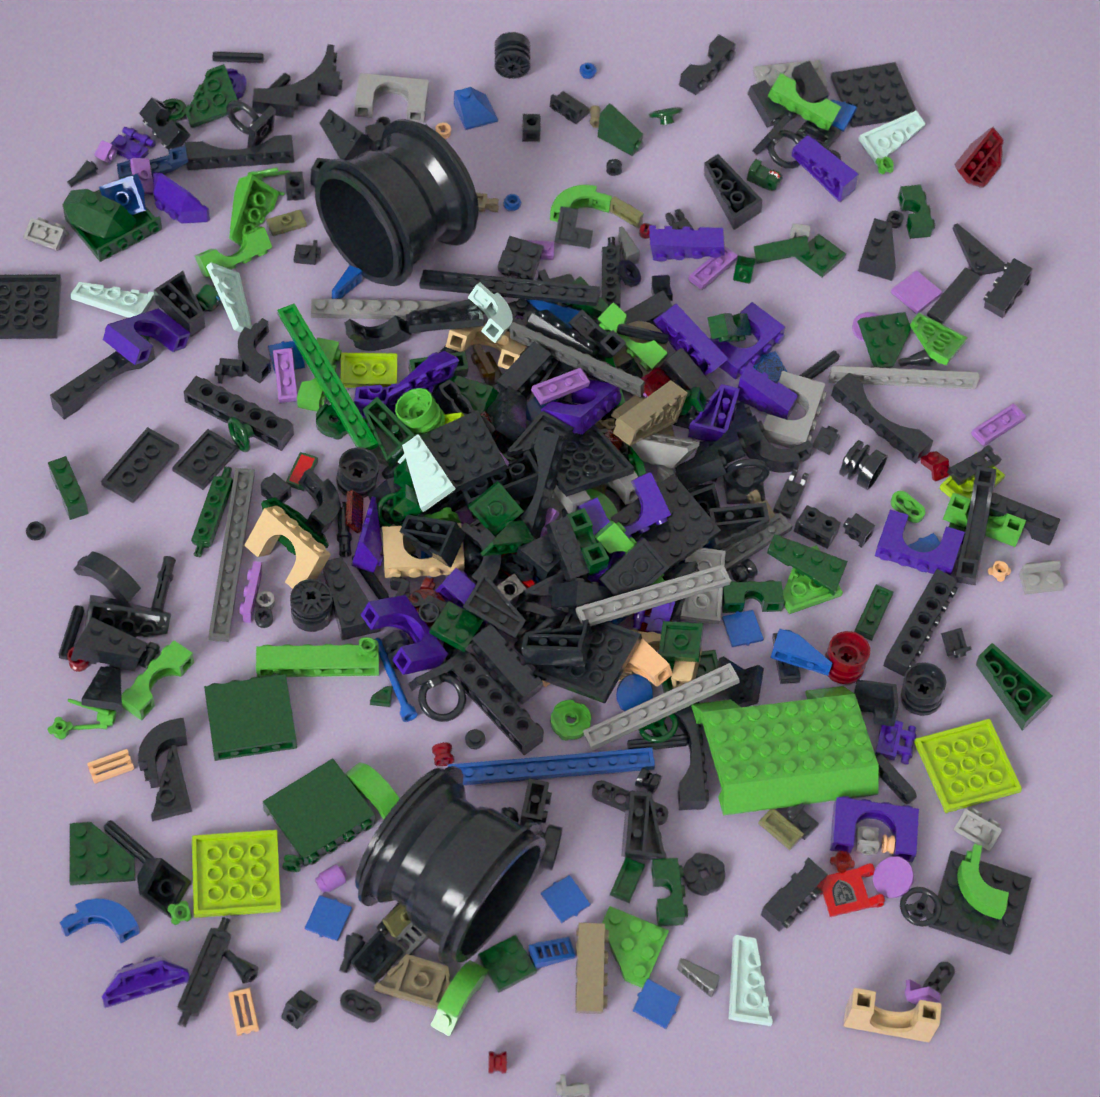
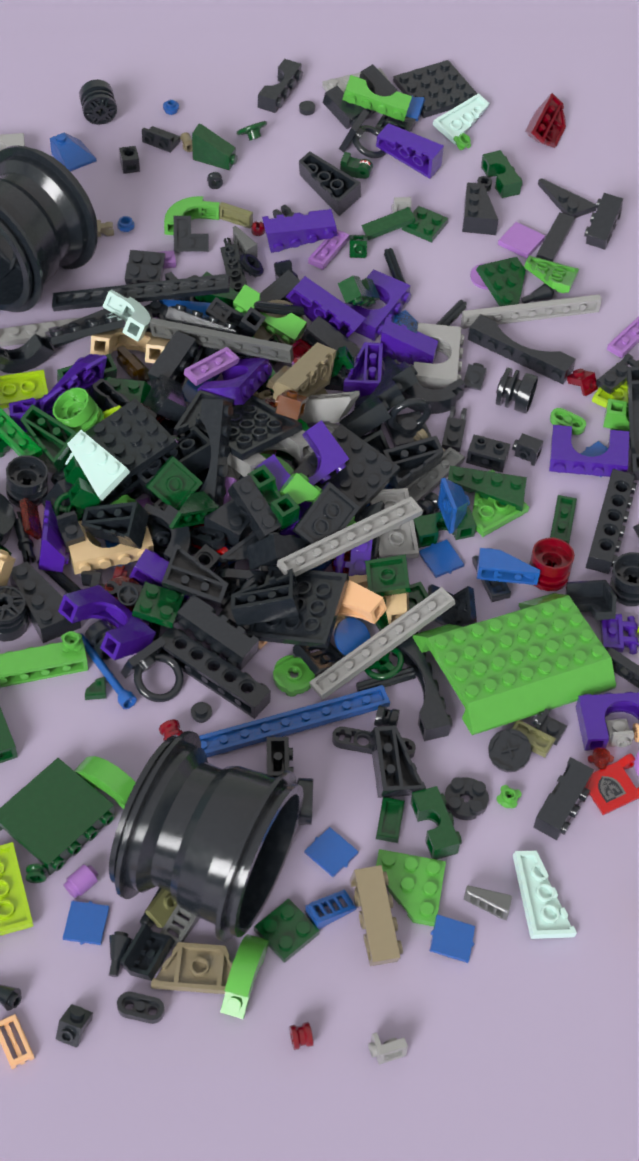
camera: 10 degrees left, 5 degrees down
(388, 533) = (70, 528): none -> black bracket
(597, 711) = (319, 660): none -> black plate
(628, 445) = (291, 404): none -> reddish brown brick
(730, 95) = (307, 108): none -> black tile
(740, 885) = (508, 802): none -> bright green plate
(756, 836) = (509, 750): none -> black tile
(764, 577) = (452, 504): none -> blue slope
(775, 298) = (393, 264): none -> black axle

